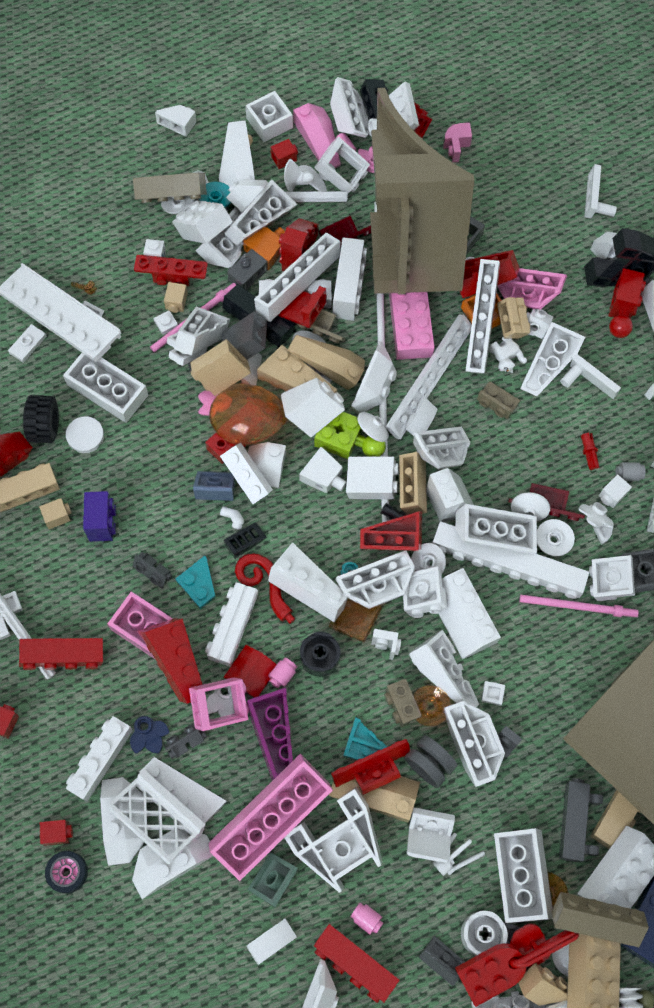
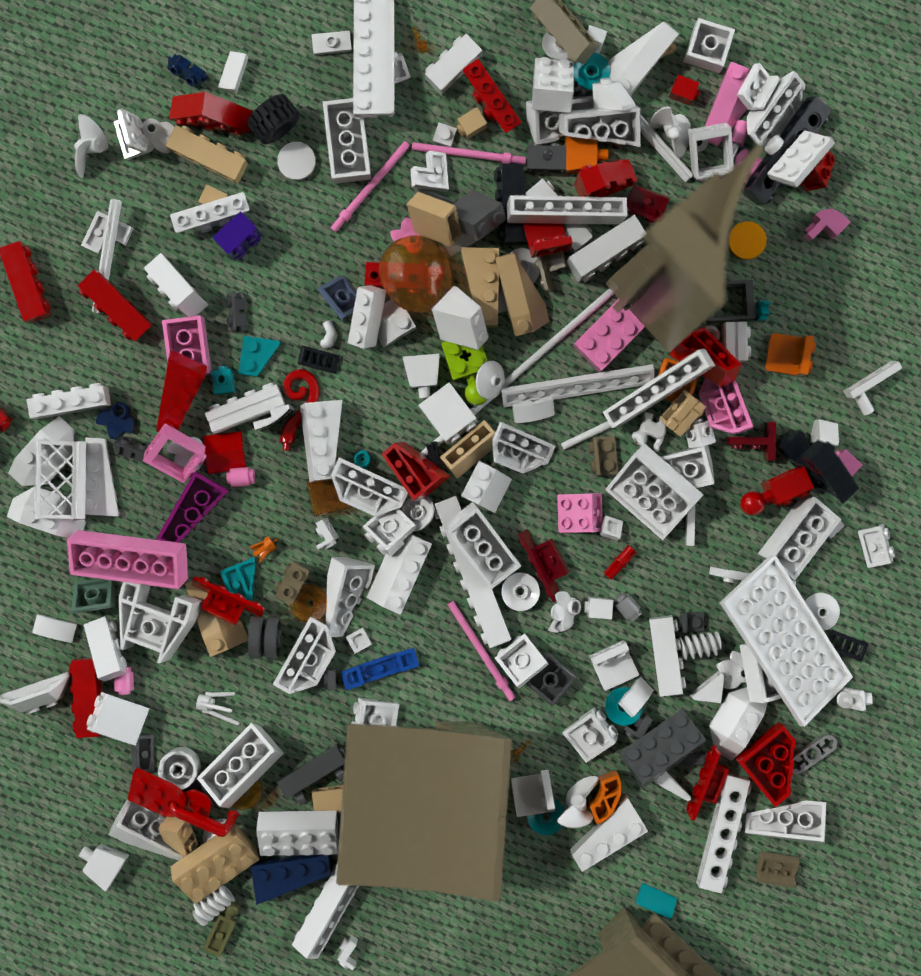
camera: 50 degrees right, 20 degrees up
(63, 524) = (210, 214): none -> white bracket
(89, 595) = (174, 286): none -> white wedge
(122, 277) = (451, 63): none -> white brick
(154, 248) = (496, 68): white brick -> none
(156, 432) = (346, 215): none -> bright pink bar
(196, 622) = (223, 381): none -> teal brick
(200, 331) = (454, 173): white wedge -> none
(260, 603) = (278, 415): none -> white slope
(310, 648) = (266, 490): black brick -> none
(327, 107) = (757, 88): none -> white bracket
(328, 906) = (105, 648): none -> white brick
(354, 703) = (264, 548): none -> orange piece
(376, 381) = (535, 348): white wedge -> none
(397, 948) = (117, 718): none -> white brick
(430, 835) = (213, 679): white bracket -> none
(472, 398) = (585, 435): none -> white bar
(483, 217) = (762, 310): none -> teal plate
(485, 246) = (734, 339): none -> white brick
(527, 449) = (579, 512): none -> bright pink bracket
(530, 226) = (790, 354): none -> orange bracket
(530, 693) = (379, 668): none -> blue slope
(531, 504) = (527, 554): white dish -> none
(556, 383) = (653, 491): none -> white slope
(558, 436) = (611, 528): none -> white plate
(559, 729) = (375, 712): none -> white plate
(581, 287) = (767, 441): none -> dark red bracket
(599, 919) = (246, 842): dark tan brick -> none

